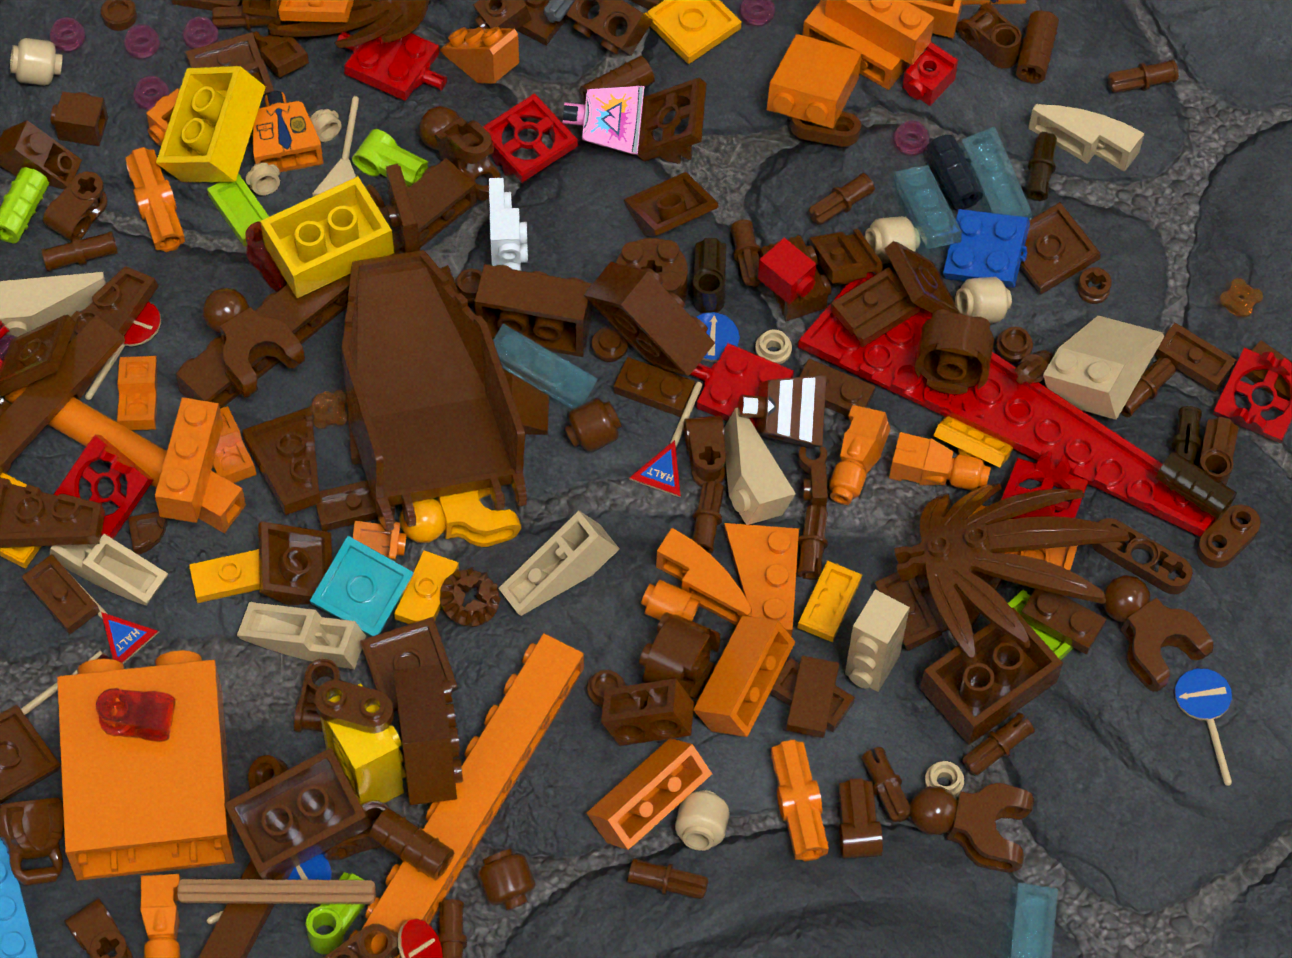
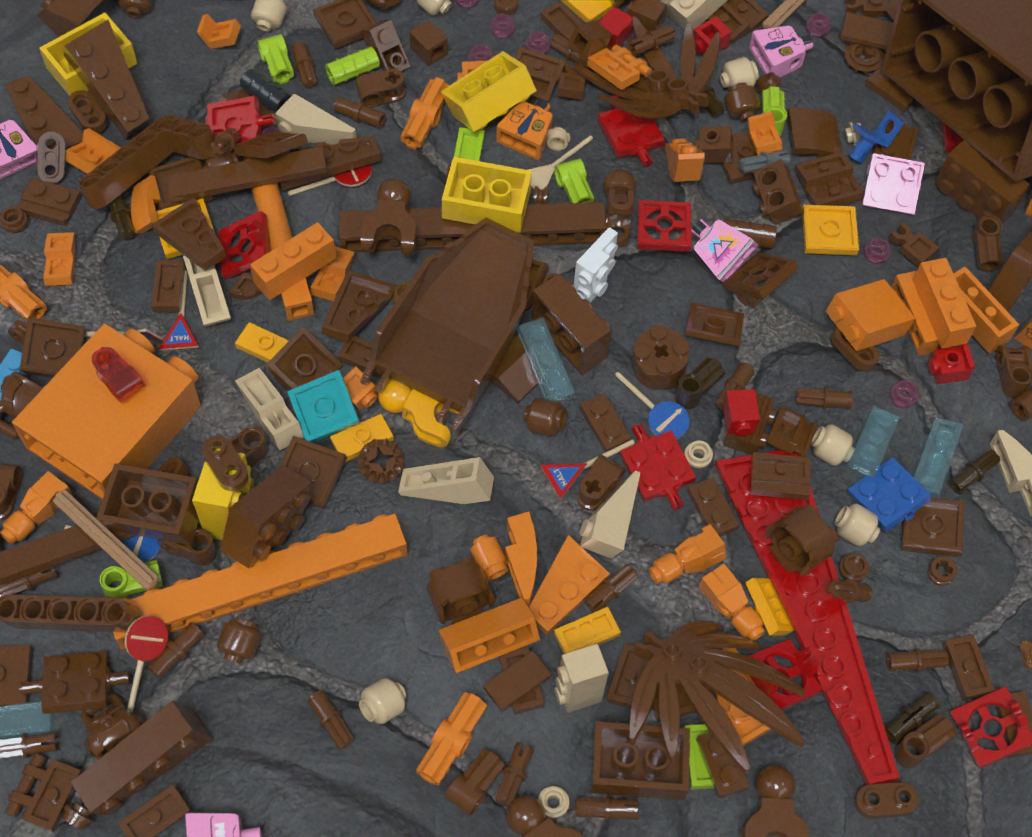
camera: 40 degrees right, 0 degrees up
(137, 392) = (318, 208): orange slope -> none
(263, 178) = (494, 143): tan plate -> none
(401, 209) = (540, 209): reddish brown plate -> none
(411, 844) = (198, 573): reddish brown axle -> none
(599, 682) = (406, 577): reddish brown plate -> none
(609, 344) = (602, 378): reddish brown plate -> none
(647, 712) = (408, 609): reddish brown brick -> none
(649, 793) = (364, 658): orange brick -> none
(650, 317) = (629, 376): reddish brown brick -> none
(708, 515) = (561, 523): reddish brown axle -> none
(788, 410) = (666, 495): reddish brown torso -> none
(815, 487) = (643, 557): reddish brown plate -> none
(920, 279) = (824, 483): reddish brown plate -> none
(954, 172) = (912, 433): black axle -> none
(1102, 365) = (898, 623): tan slope -> none
(1146, 571) = (829, 785): reddish brown beam -> none
(1196, 485) = (888, 749): dark brown axle -> none

